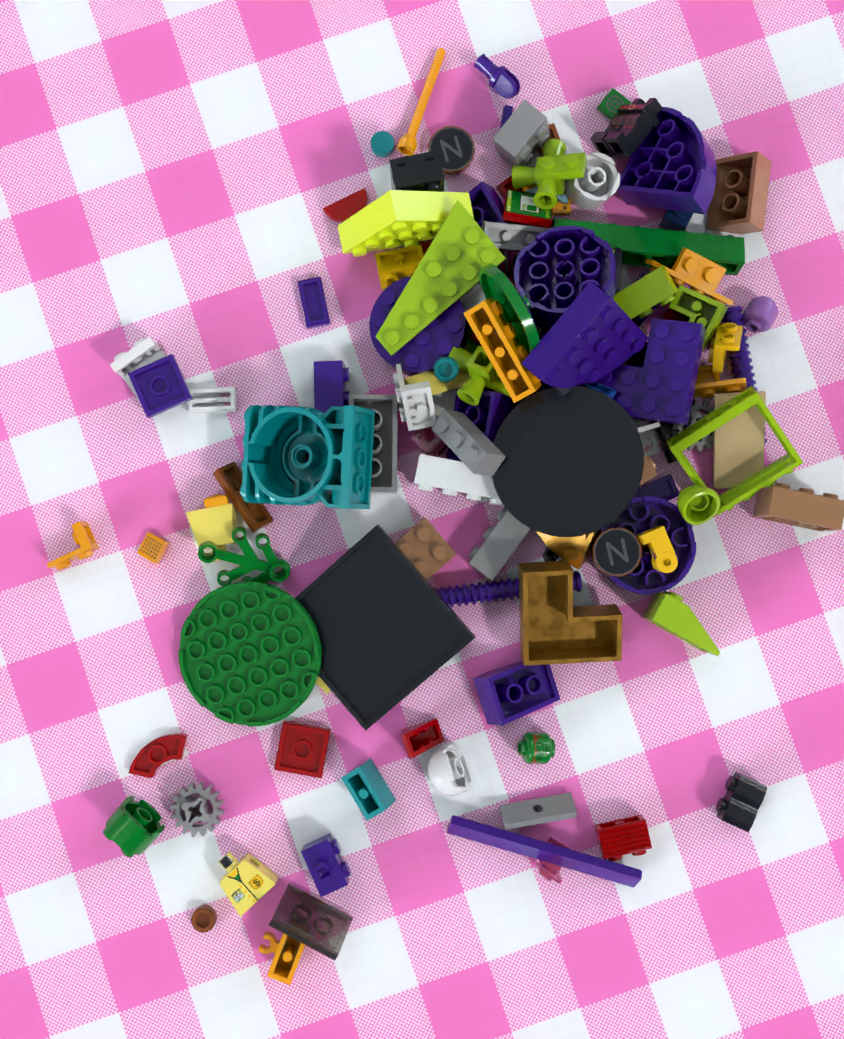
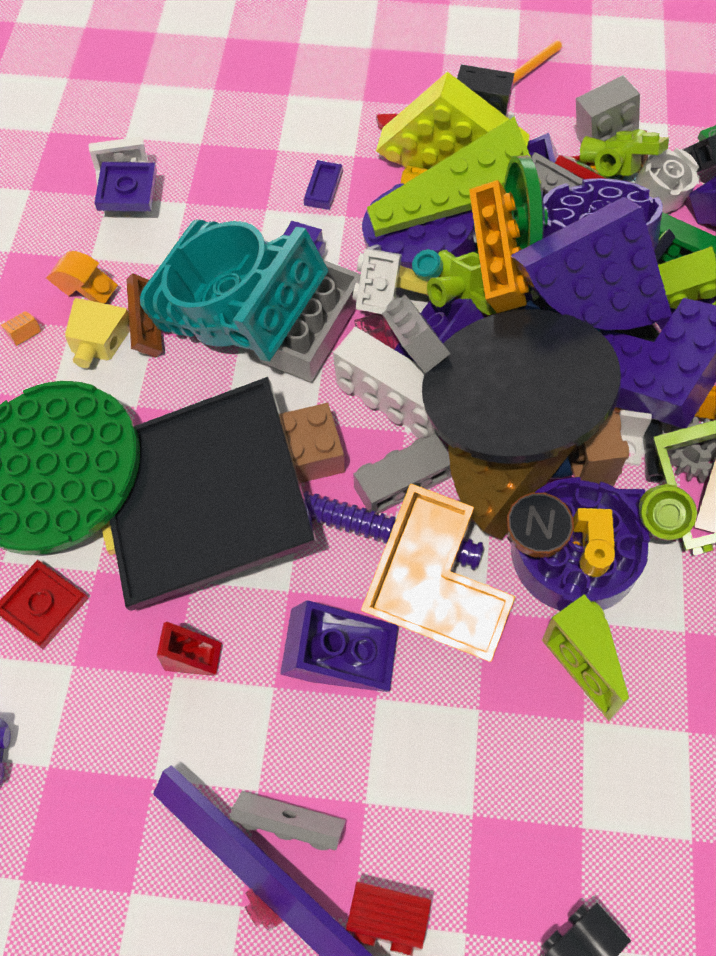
camera: 30 degrees right, 25 degrees down
(177, 488) = (80, 273): none -> light orange brick
(214, 409) = (165, 228): white tile -> none
(216, 500) = (112, 299): light orange tile -> none
(248, 562) = (109, 373): green plant -> none
(368, 789) = (86, 679): teal brick -> none
(449, 772) = (197, 706): white cylinder -> none
(454, 147) = (533, 114): black tile -> none
(500, 78) = (602, 72): dark purple arm -> none
(536, 747) = (327, 733): green head -> none

